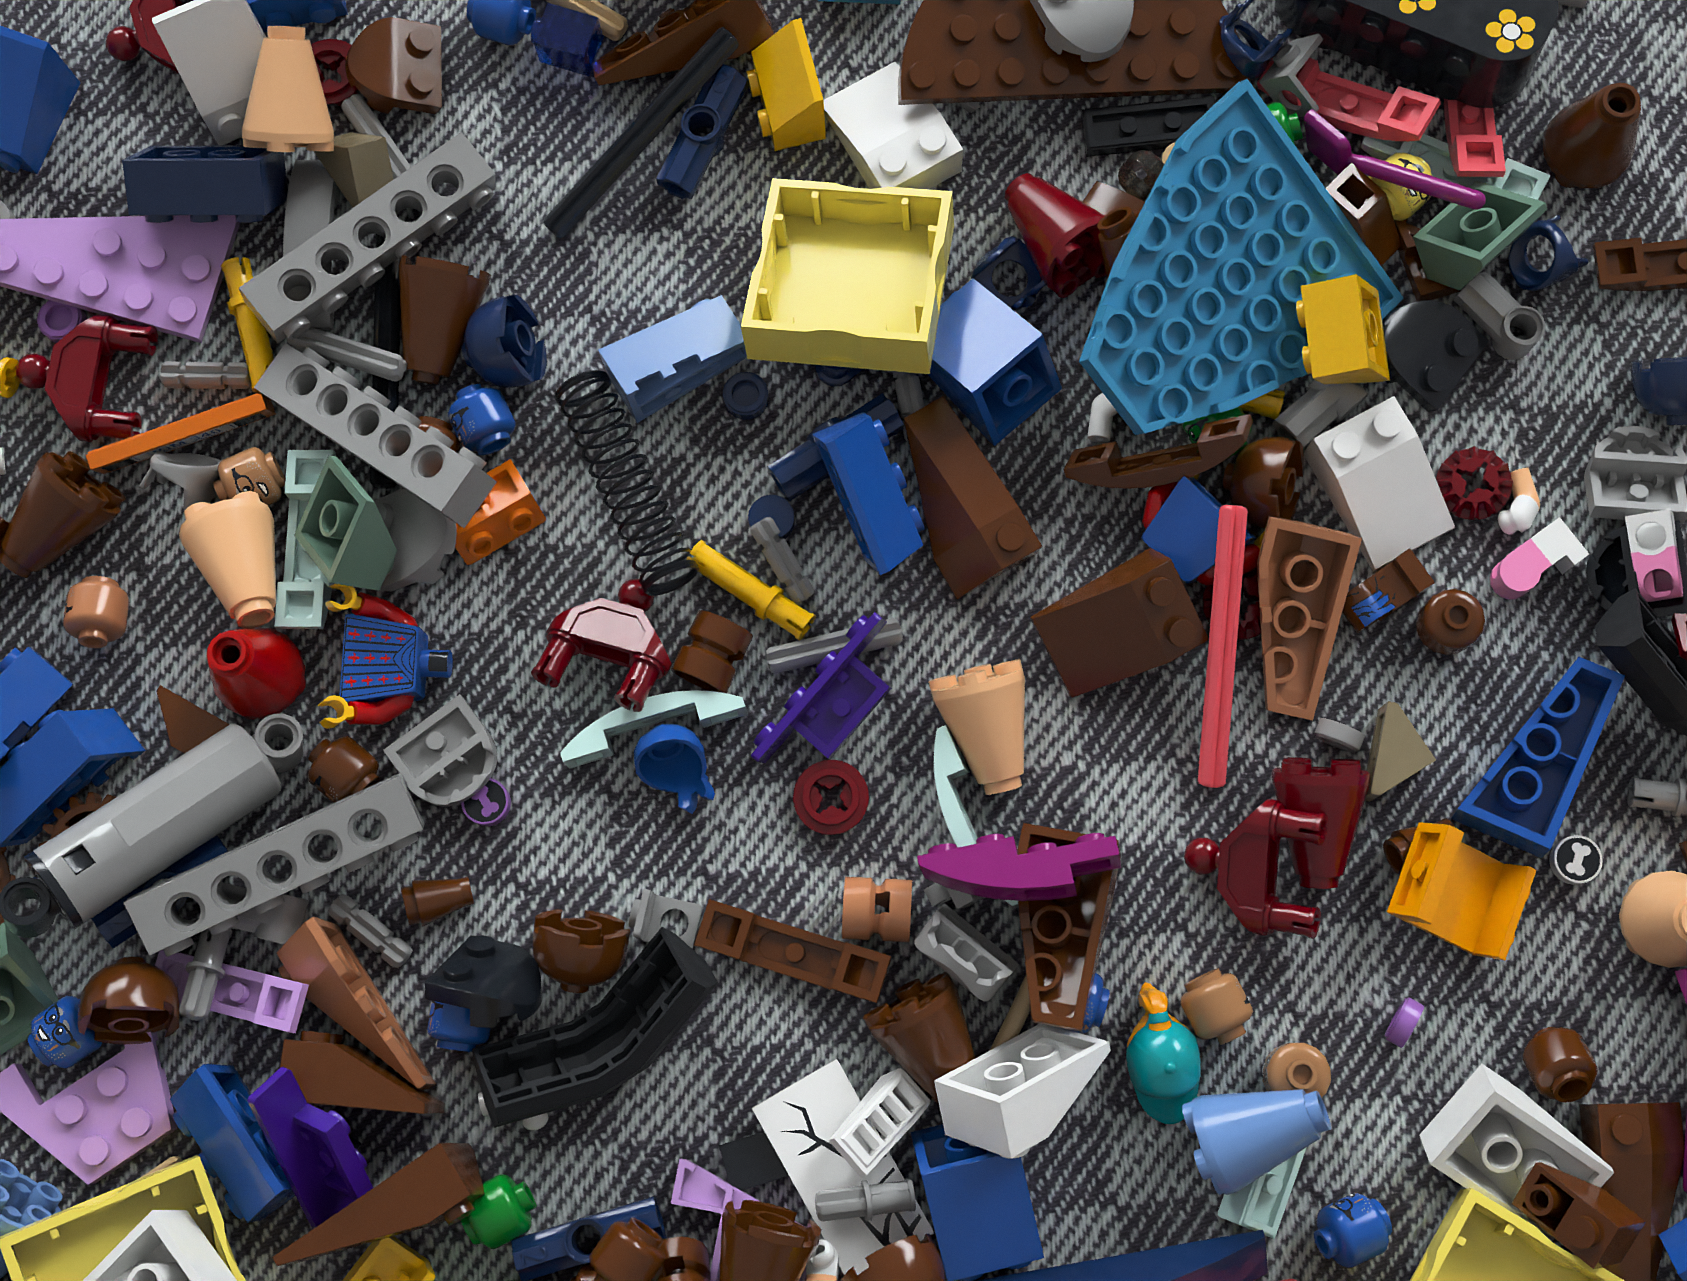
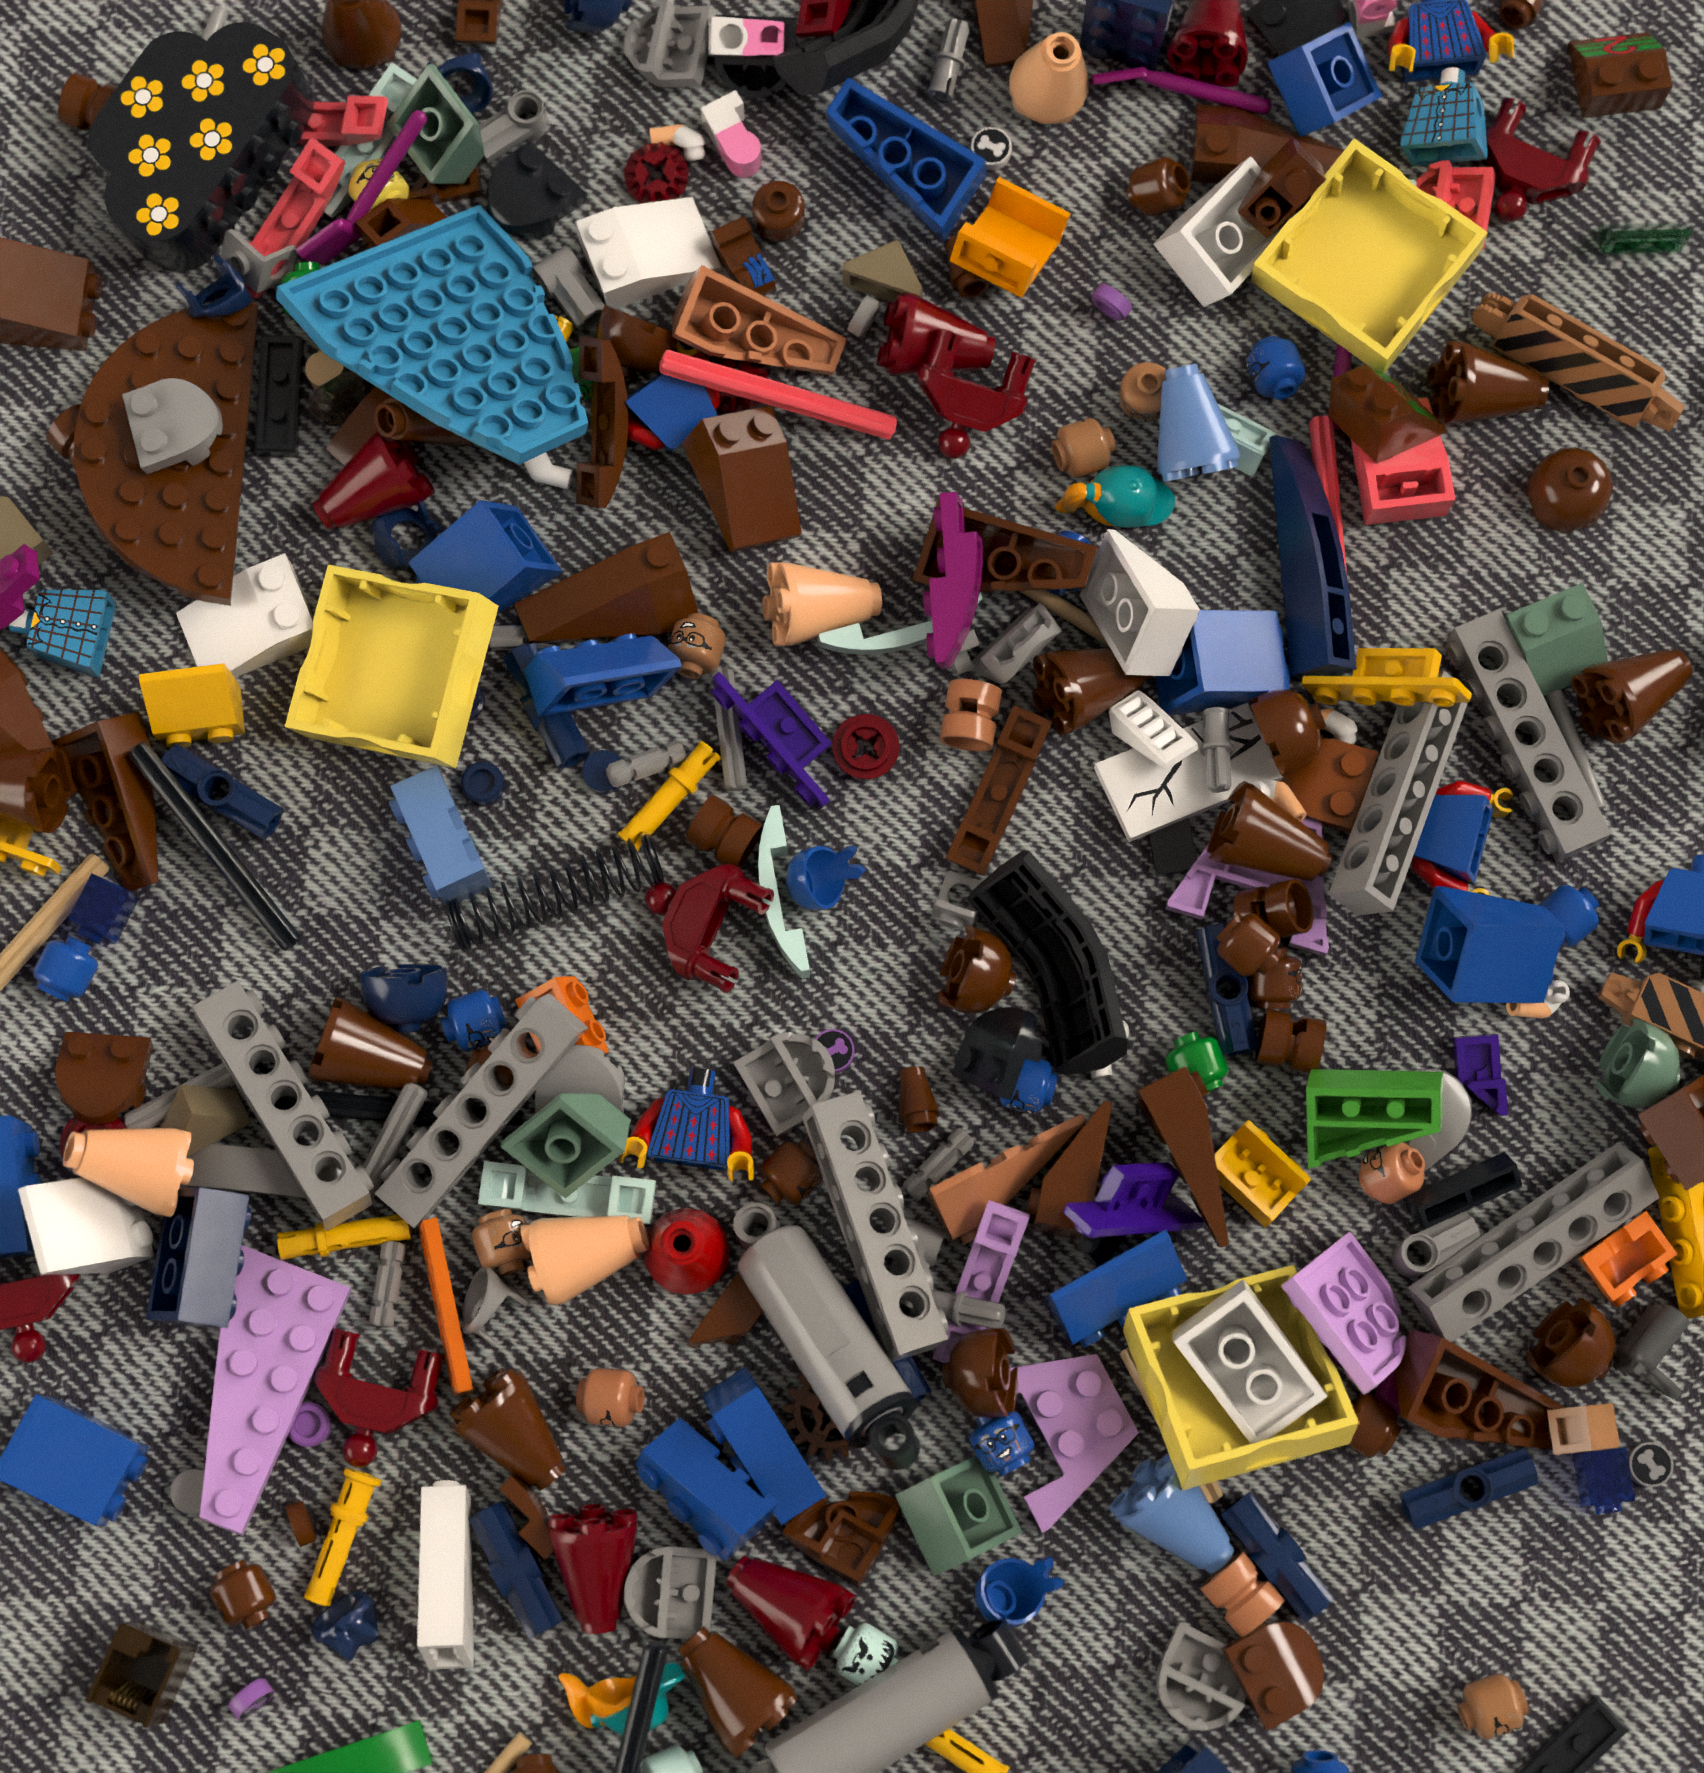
camera: 90 degrees left, 0 degrees up
(921, 596) = (697, 644): none -> medium nougat head
(1343, 331) = (514, 252): yellow slope -> none

